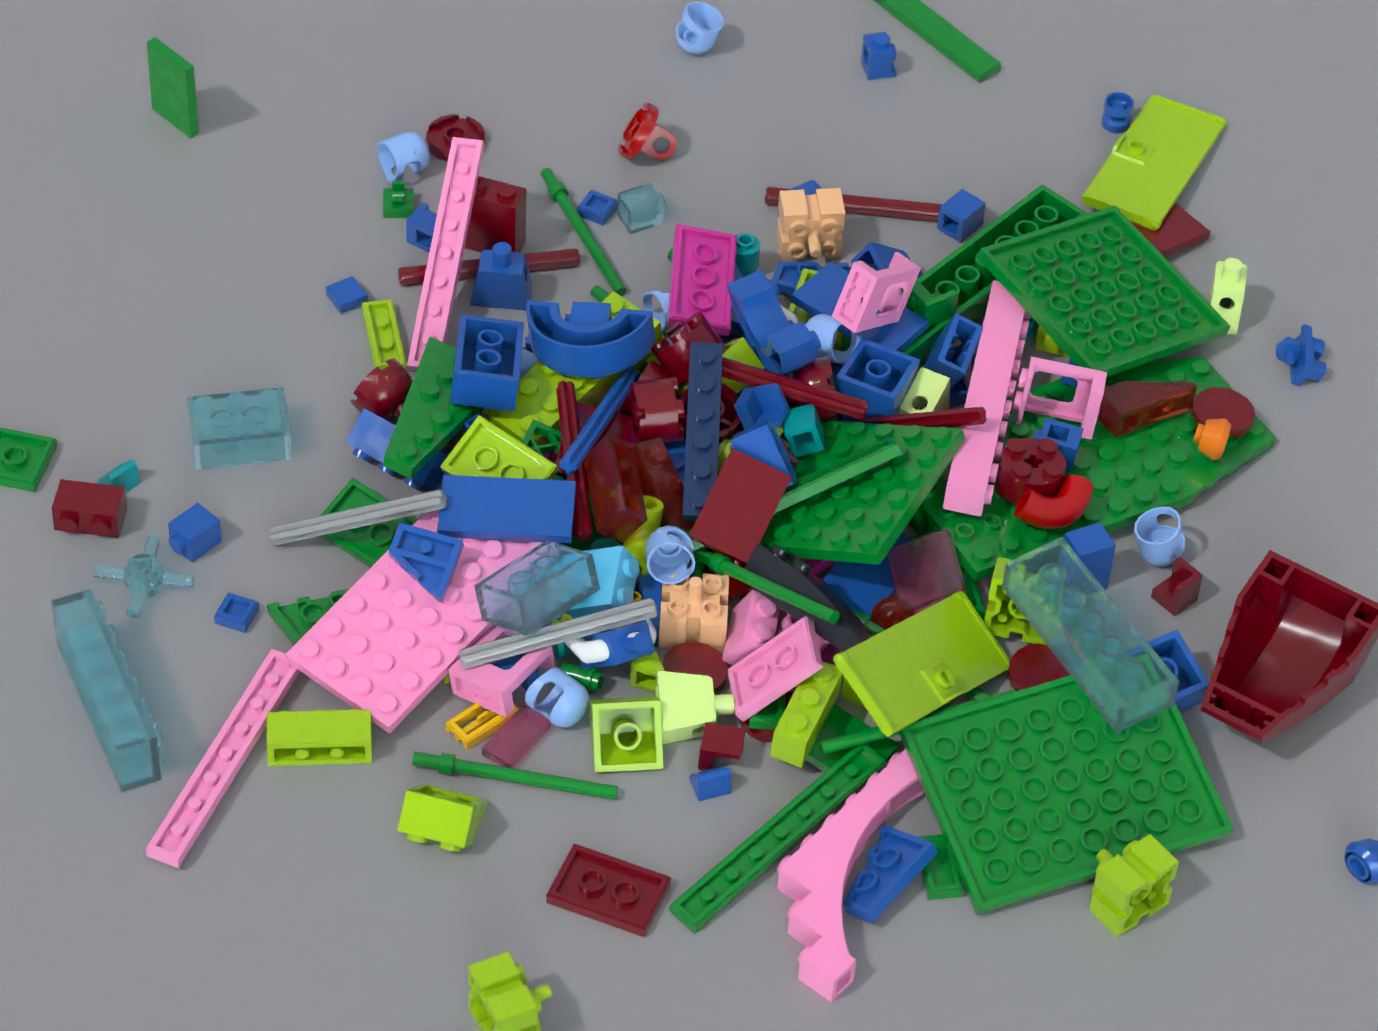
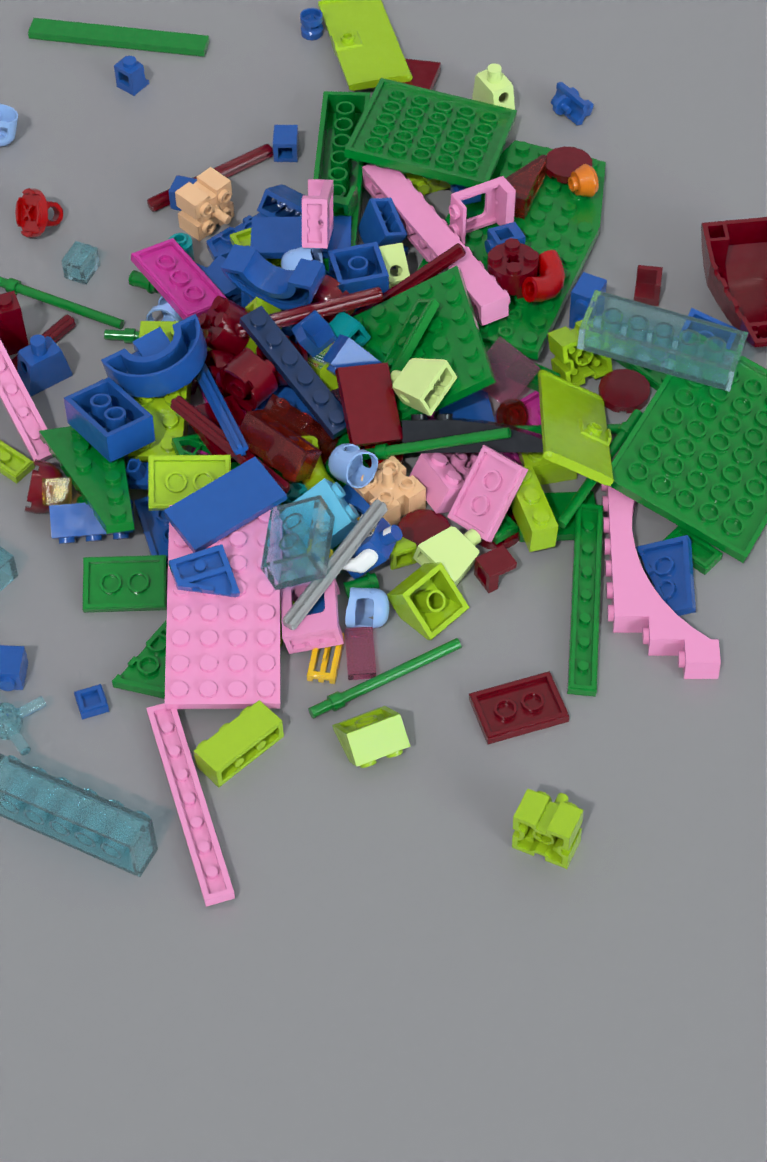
camera: 35 degrees left, 5 degrees up
(358, 517) = (122, 579): light grey axle -> none
(385, 400) = (57, 491): none -> clear yellow plate
(597, 207) = (48, 280): blue tile -> none
(711, 783) = (507, 594): blue slope -> none
(806, 519) = (423, 383): none -> yellowish green torso
(1157, 542) = (613, 265): light blue helmet -> none

